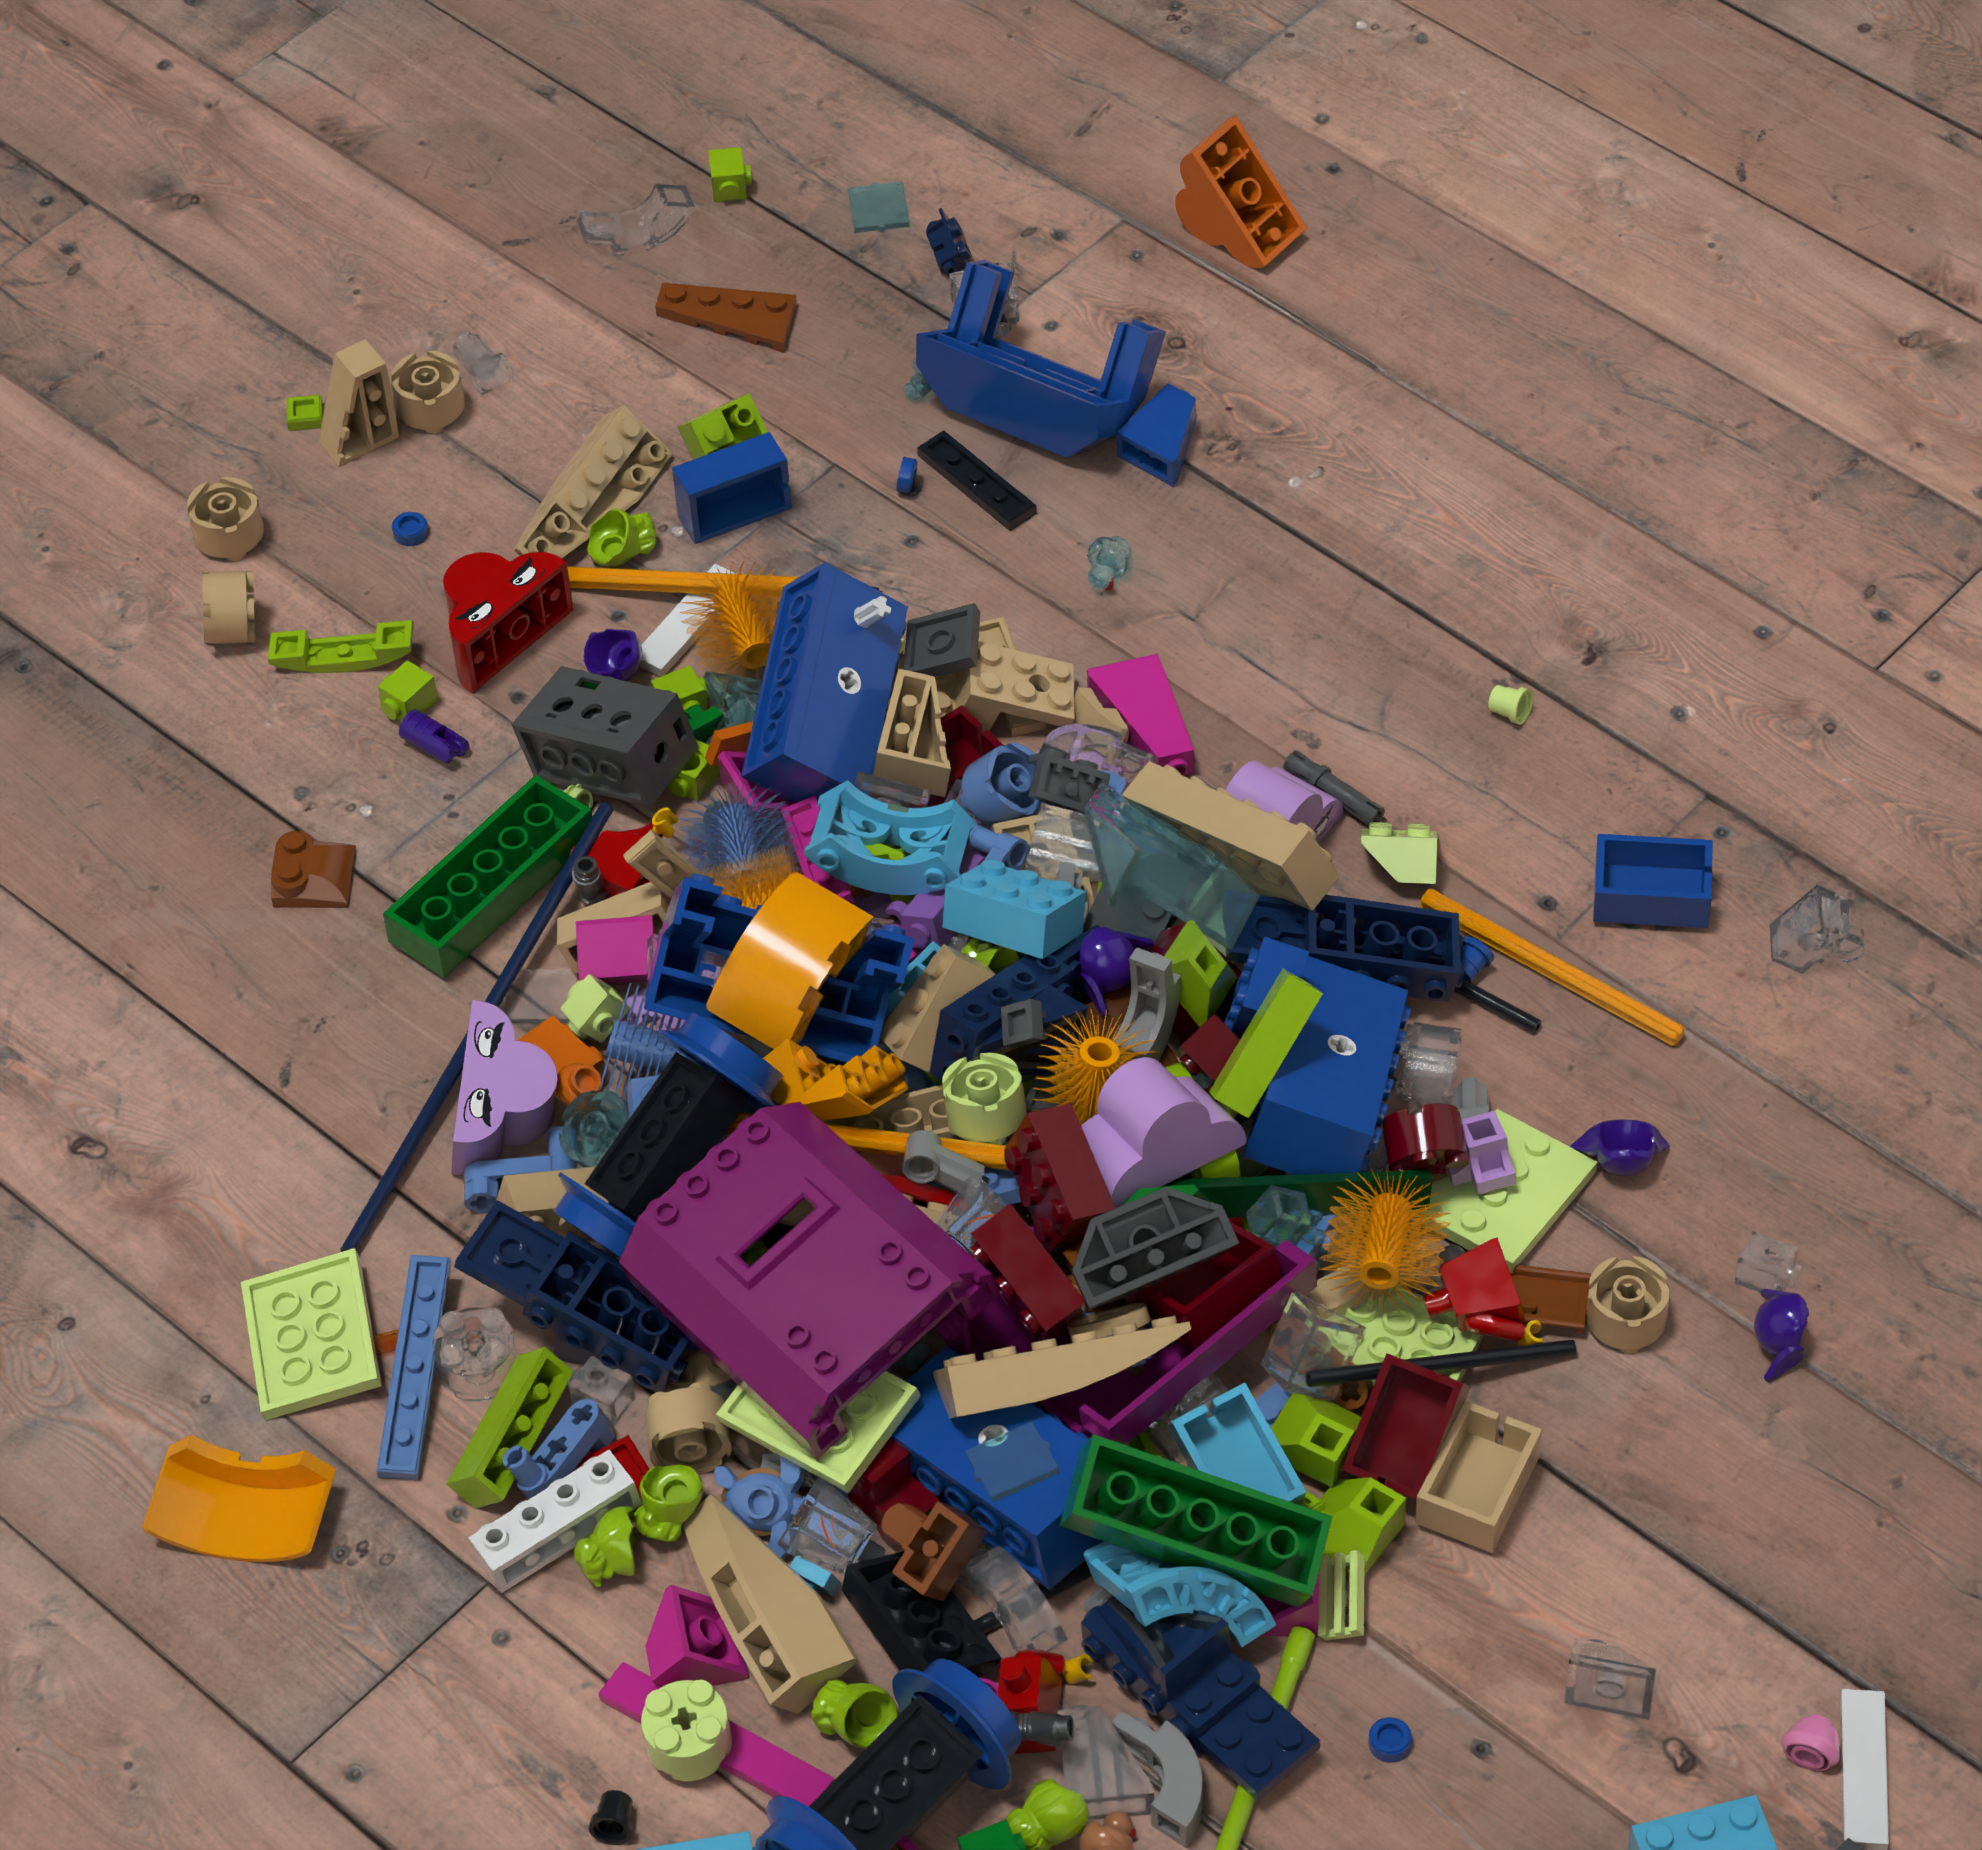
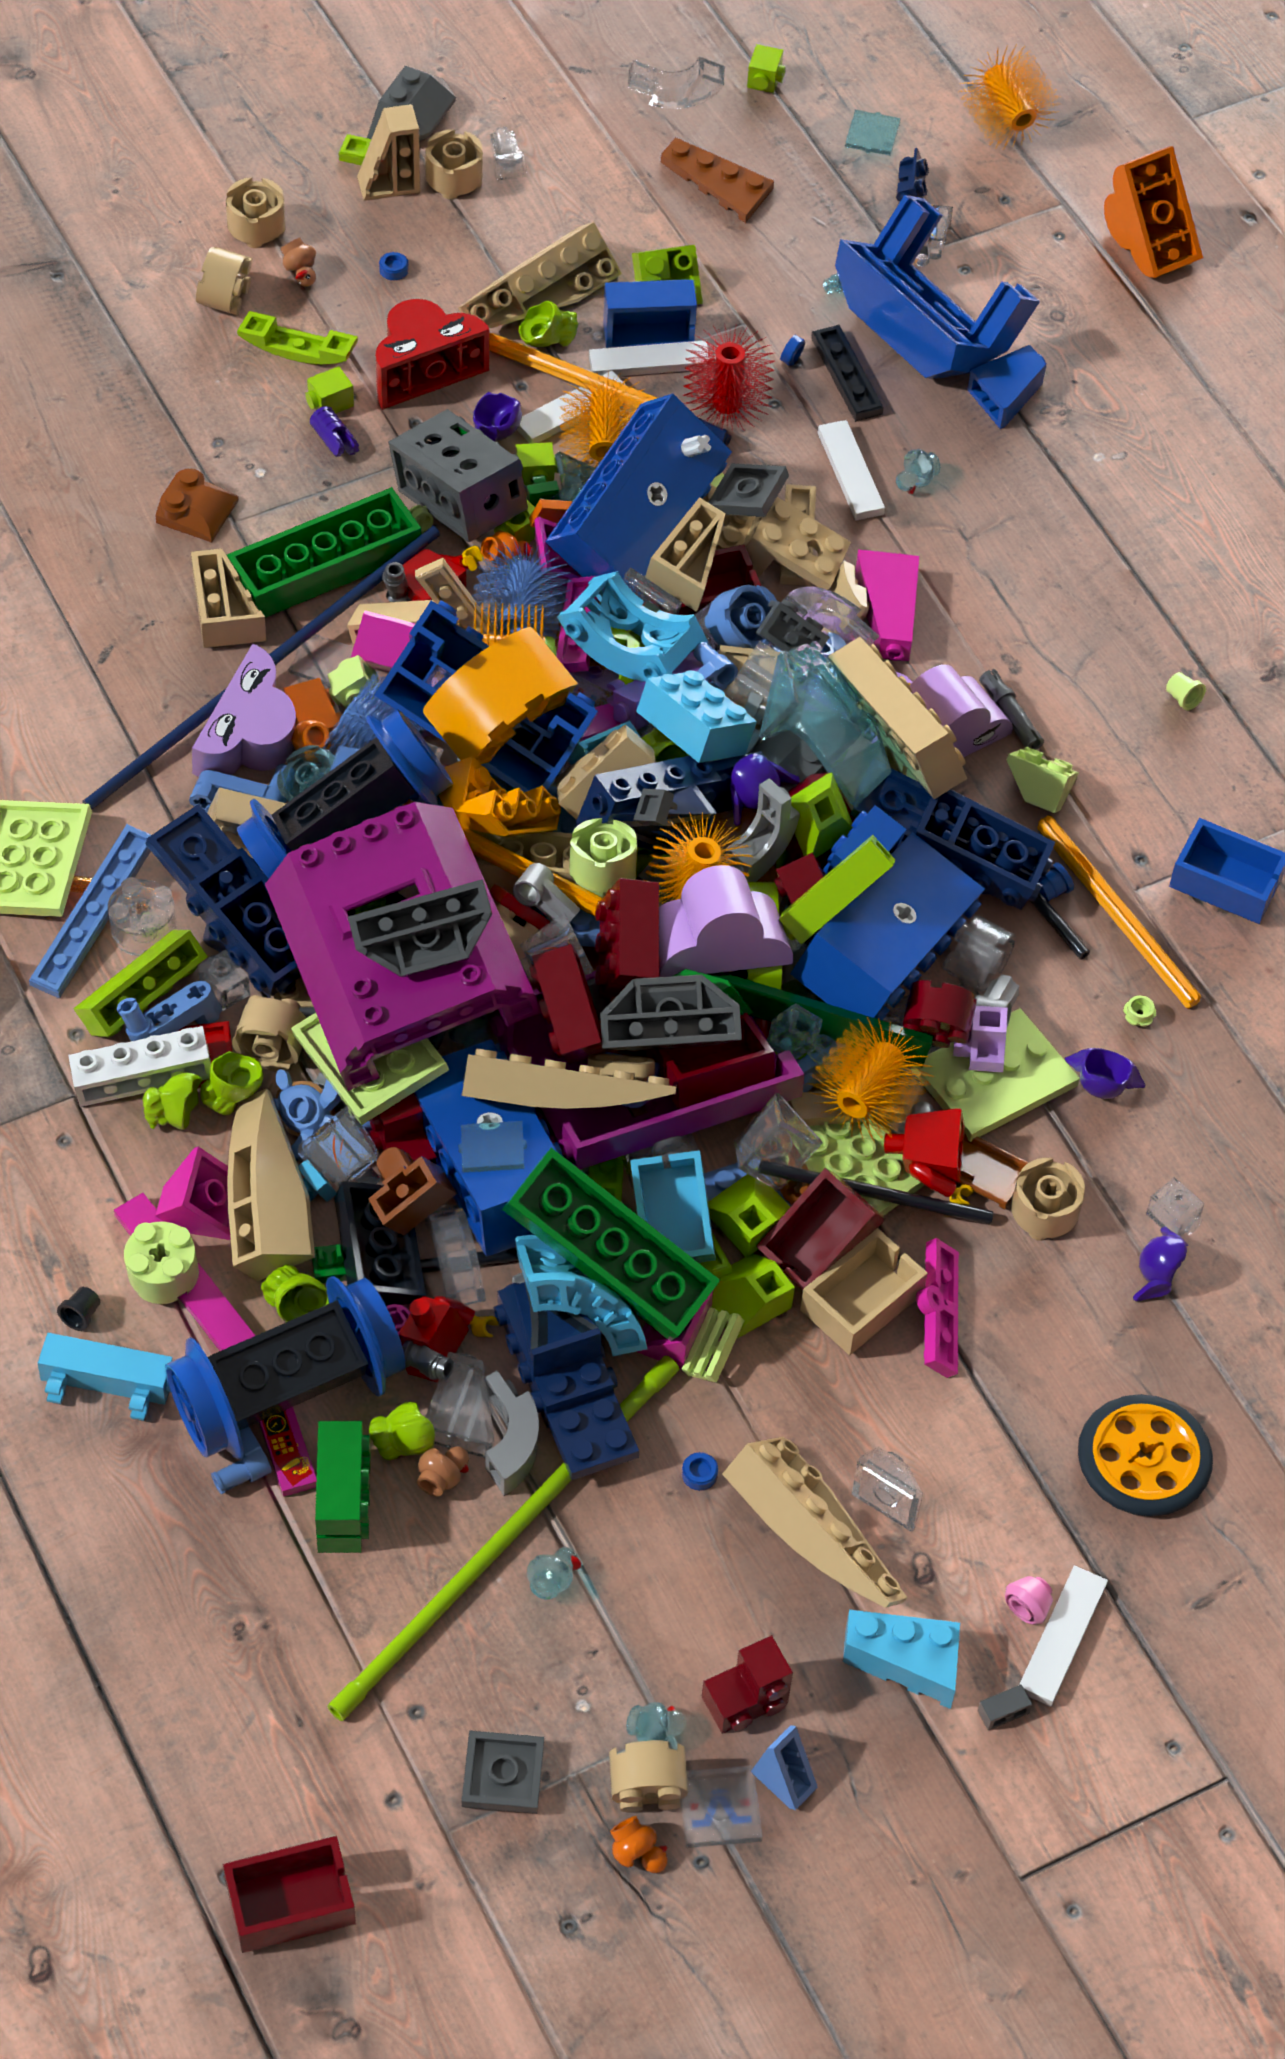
camera: 15 degrees right, 5 degrees up
(300, 554) = (300, 258): none -> nougat animal
(340, 326) = (426, 93): none -> dark grey wedge
(398, 969) = (223, 604): none -> tan wedge
(681, 796) = (497, 540): none -> orange animal
(751, 536) = (645, 358): none -> white tile
(848, 1243) = (424, 929): none -> dark grey wedge
(855, 527) = (728, 378): none -> red piece
(874, 1663) = (328, 1263): none -> green tile
(1019, 119) = (1009, 97): none -> light orange piece
(1032, 585) = (851, 470): none -> white tile
(1536, 1745) = (810, 1517): none -> tan wedge
(1565, 1461) = (940, 1306): none -> dark pink hinge
(1628, 1059) = (1143, 1005): none -> yellowish green plate
(1828, 1581) = (1149, 1498): none -> wedge

